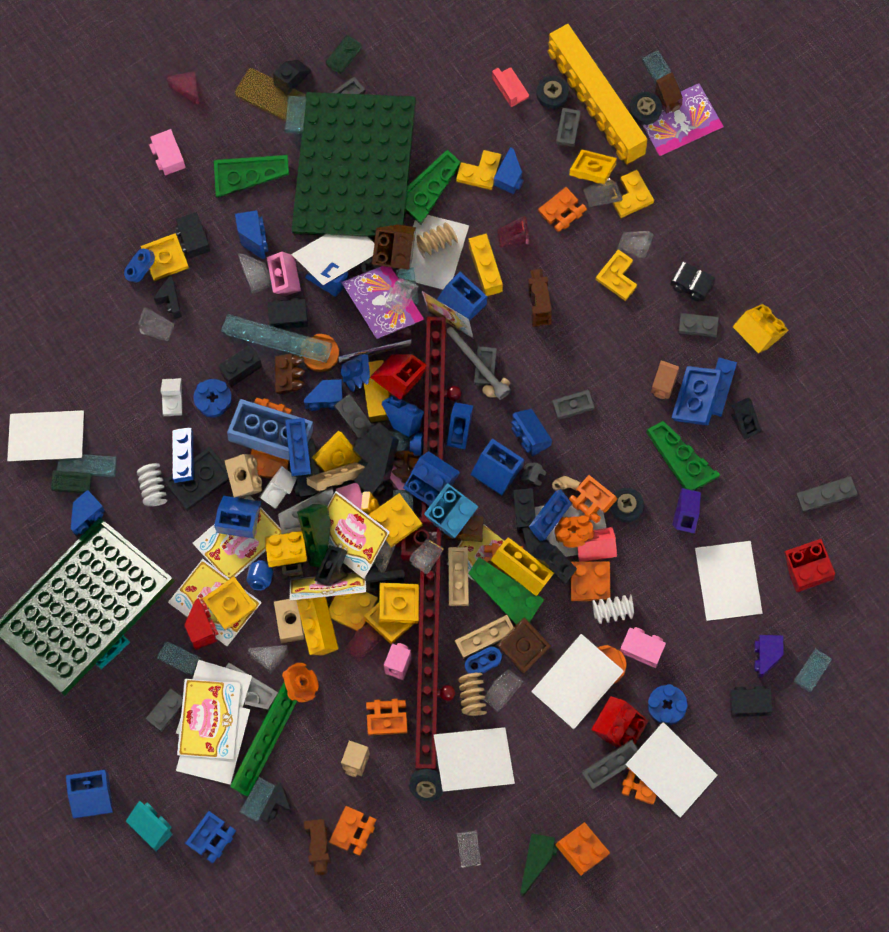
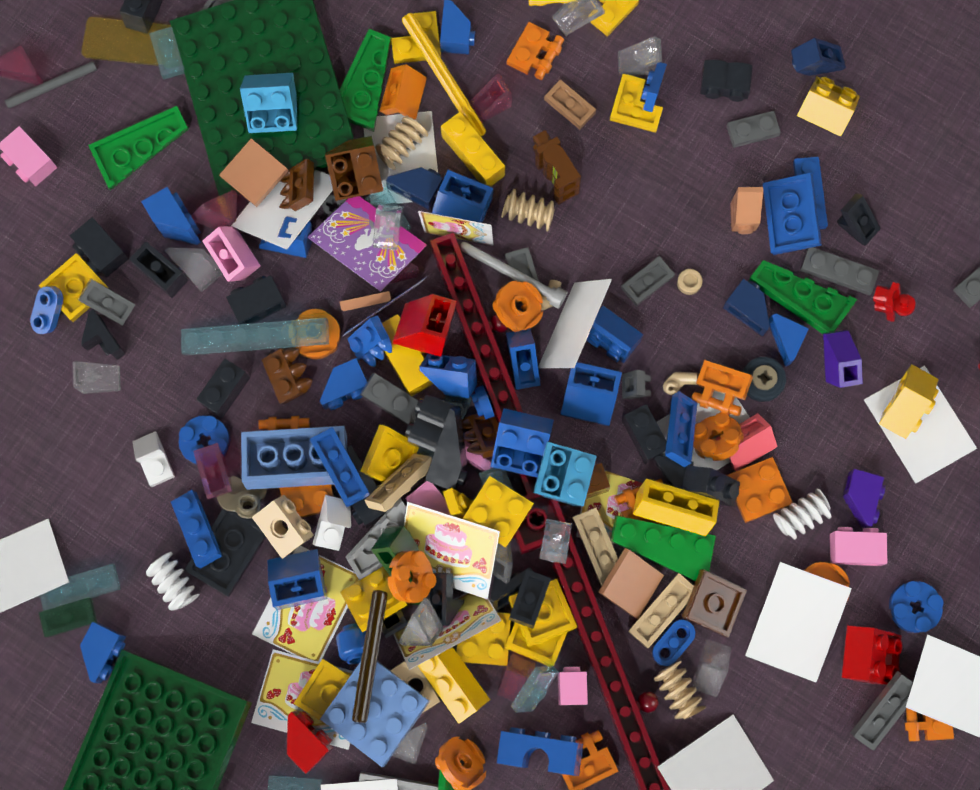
camera: 25 degrees left, 5 degrees up
(183, 275) = (106, 301): none -> dark grey plate
(204, 107) = (50, 85): none -> dark grey bar
(210, 419) = (213, 471): none -> clear pink slope
(222, 445) = (241, 497): none -> dark tan plate
(228, 266) = (159, 269): none -> black brick
(256, 622) = (390, 717): none -> medium blue plate
(266, 583) = (369, 656): none -> dark brown axle
(286, 240) = (218, 211): none -> clear pink slope
(310, 577) = (422, 627): none -> clear slope
(322, 222) = (254, 172): none -> nougat tile
(326, 541) = (422, 574): none -> orange plate
(350, 243) = (299, 186): none -> reddish brown plate
(353, 177) = (269, 102): none -> dark azure slope
(363, 342) = (365, 301): none -> nougat tile
(371, 652) = (534, 689): none -> clear light blue plate
(372, 702) = (517, 748): none -> blue arch
(393, 588) = (529, 599): none -> black plate
(434, 274) = (416, 185): none -> dark blue slope
(453, 204) = (403, 91): none -> orange panel
(461, 389) = (508, 313): none -> orange plate
(470, 608) = (631, 583): none -> nougat tile
(487, 202) = (442, 72): none -> yellow axle
(504, 413) = (574, 324): none -> white sticker
(507, 322) = (528, 209): none -> tan piece
(570, 257) = (570, 104): none -> medium nougat plate
(604, 416) = (689, 281): none -> tan tile
(637, 448) = (749, 306): none -> dark blue slope
(638, 264) = (651, 92): none -> blue plate
(658, 482) = (787, 336): none -> blue slope
(662, 611) = (862, 496): none -> dark purple slope
(717, 450) = (839, 271): none -> dark grey plate
(722, 558) = (912, 399): none -> yellow brick
(742, 484) = (891, 301): none -> red hips
(768, 290) = (817, 57): none -> dark blue slope

